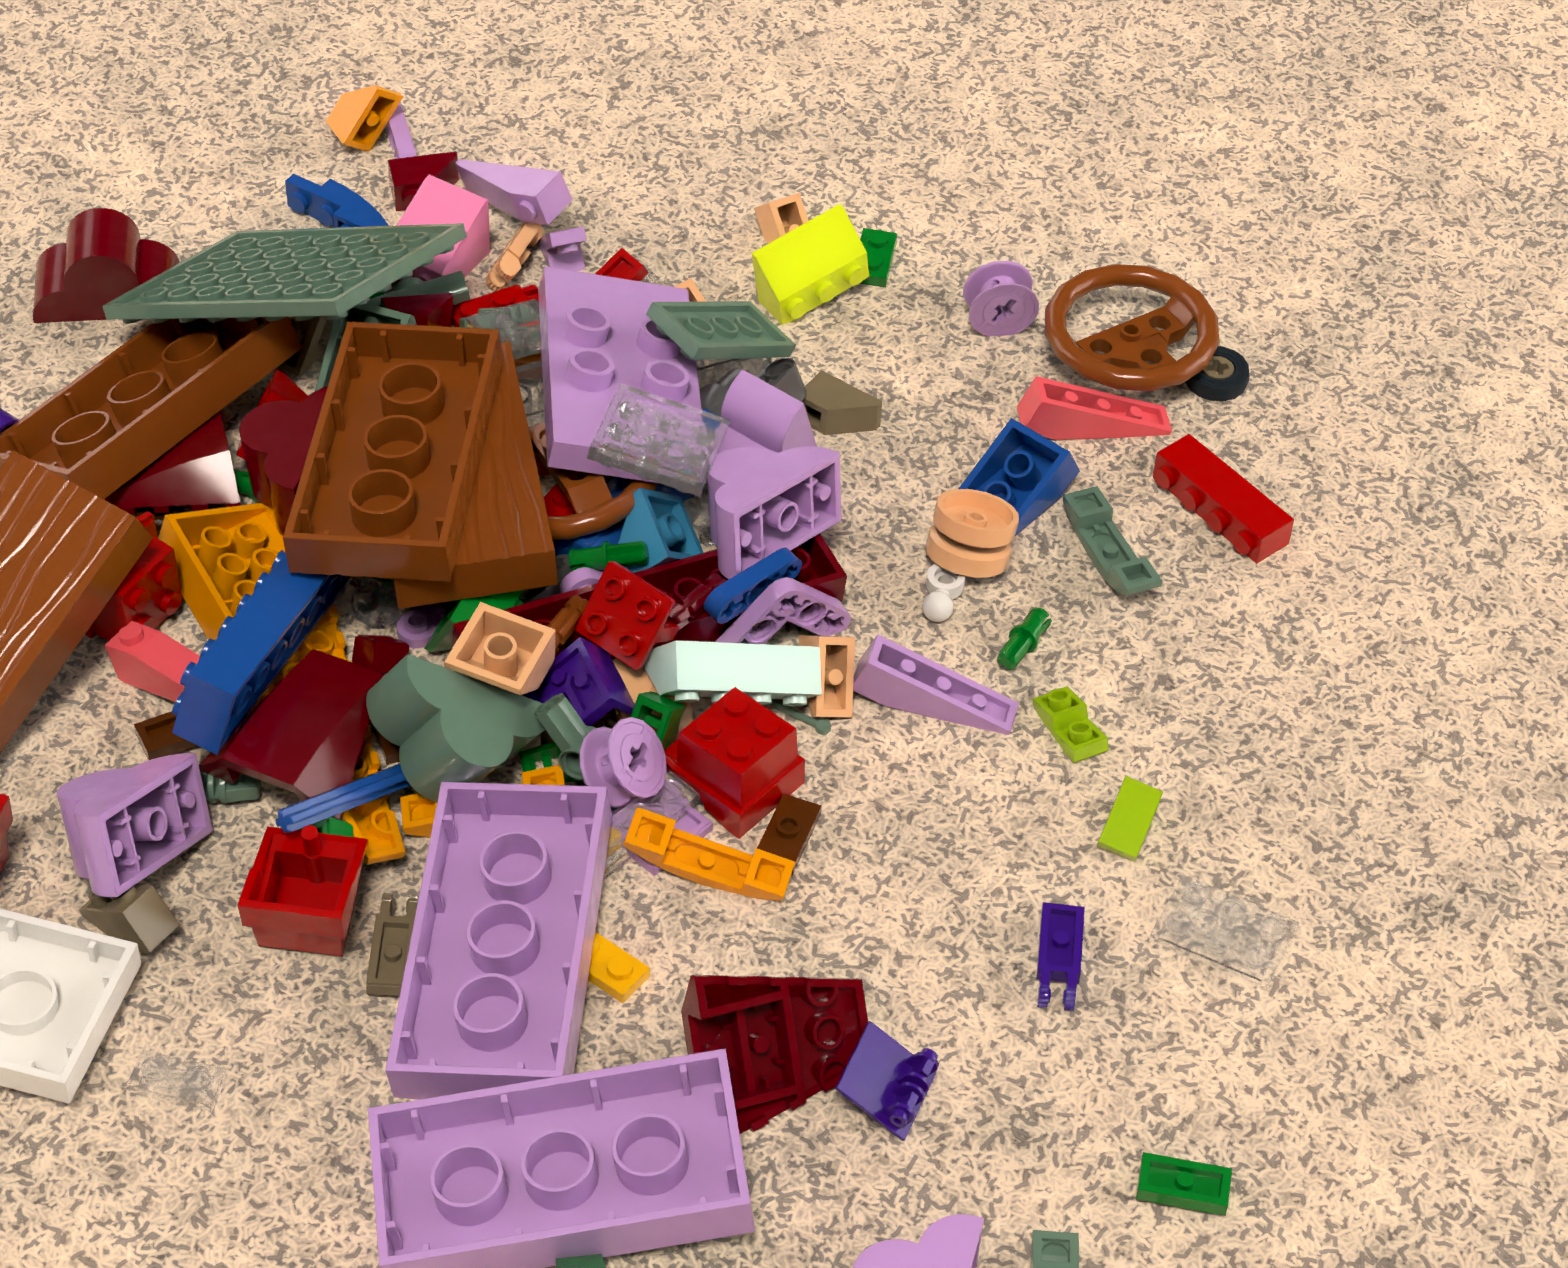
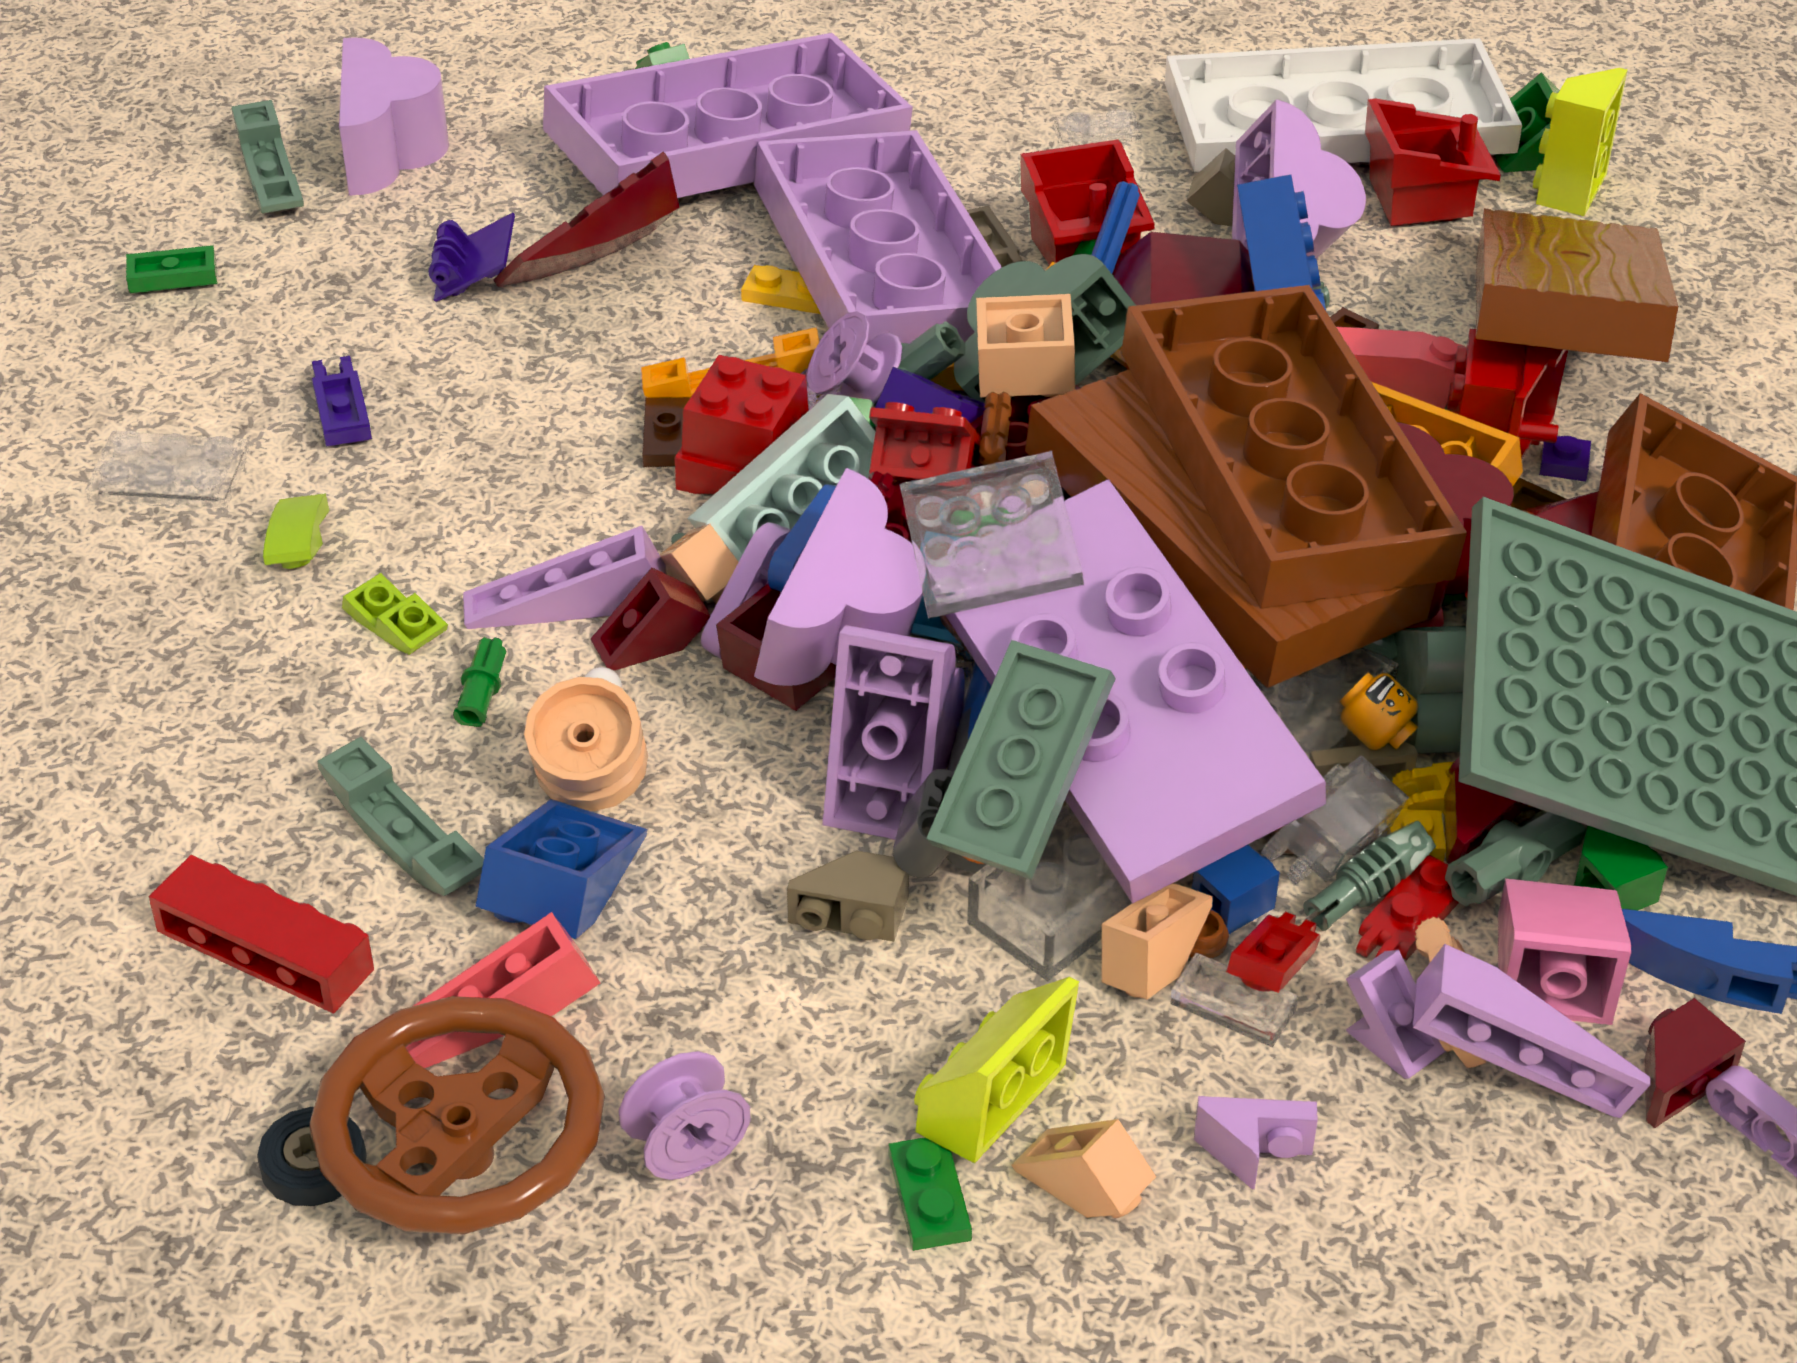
camera: 160 degrees right, 5 degrees down
(686, 222) = (1244, 1127): none -> lavender slope
(876, 618) = (651, 622): none -> dark red slope

